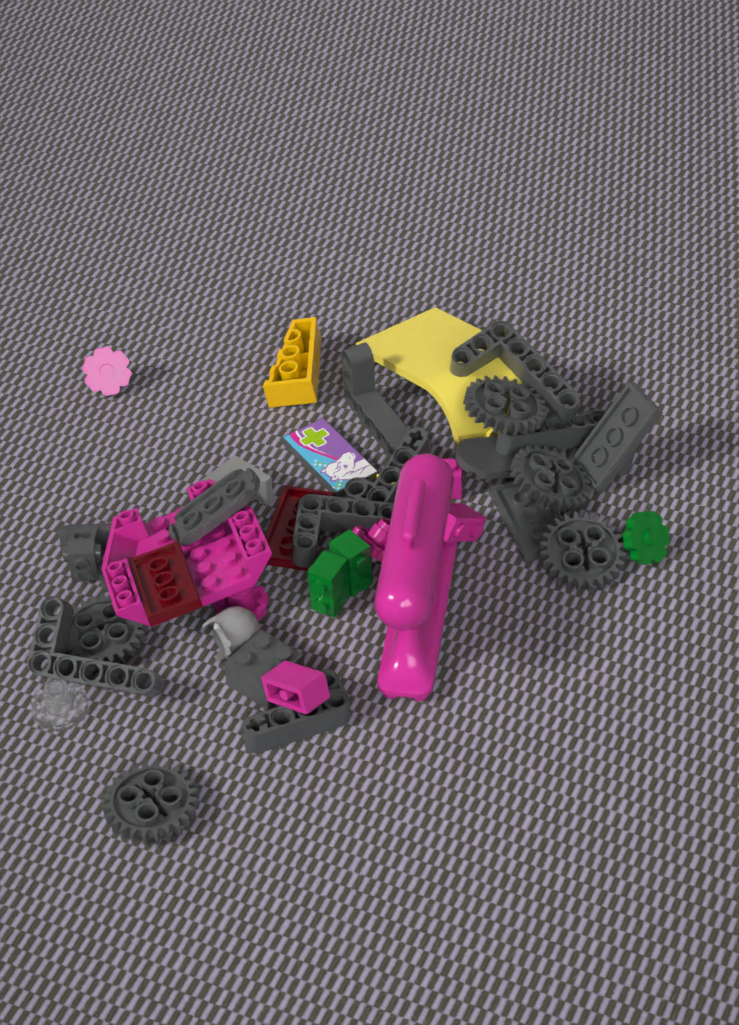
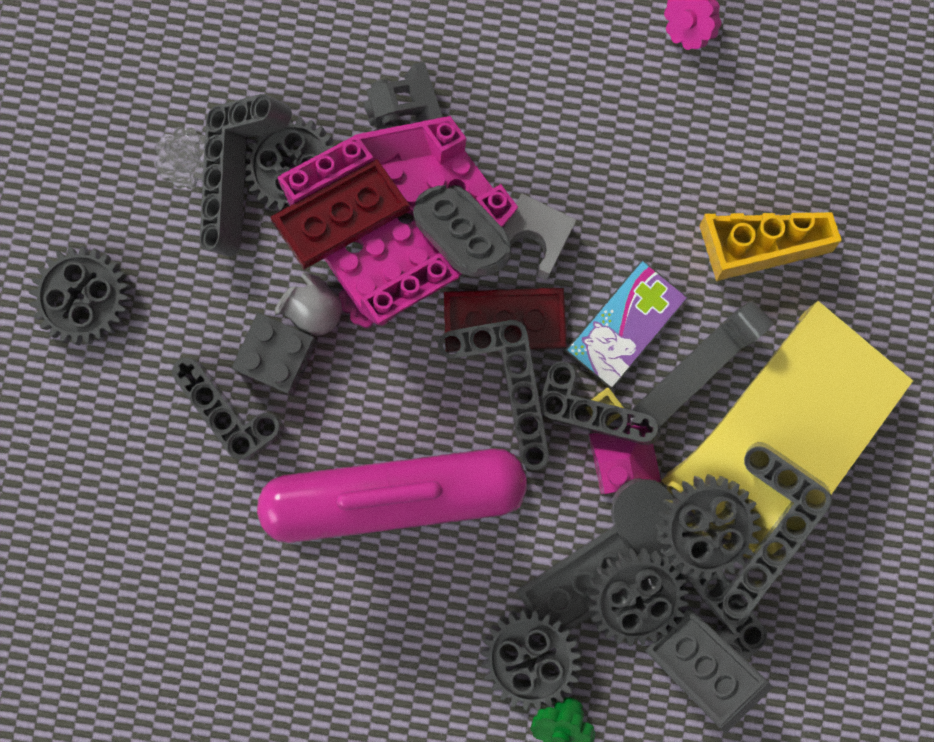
camera: 70 degrees right, 40 degrees up
(295, 687) = (231, 402): dark pink brick -> none
(329, 583) = (401, 388): green brick -> none
(359, 559) = (439, 404): green brick -> none
(375, 537) = (480, 422): dark pink plant -> none
(463, 524) = (540, 510): dark pink brick -> none

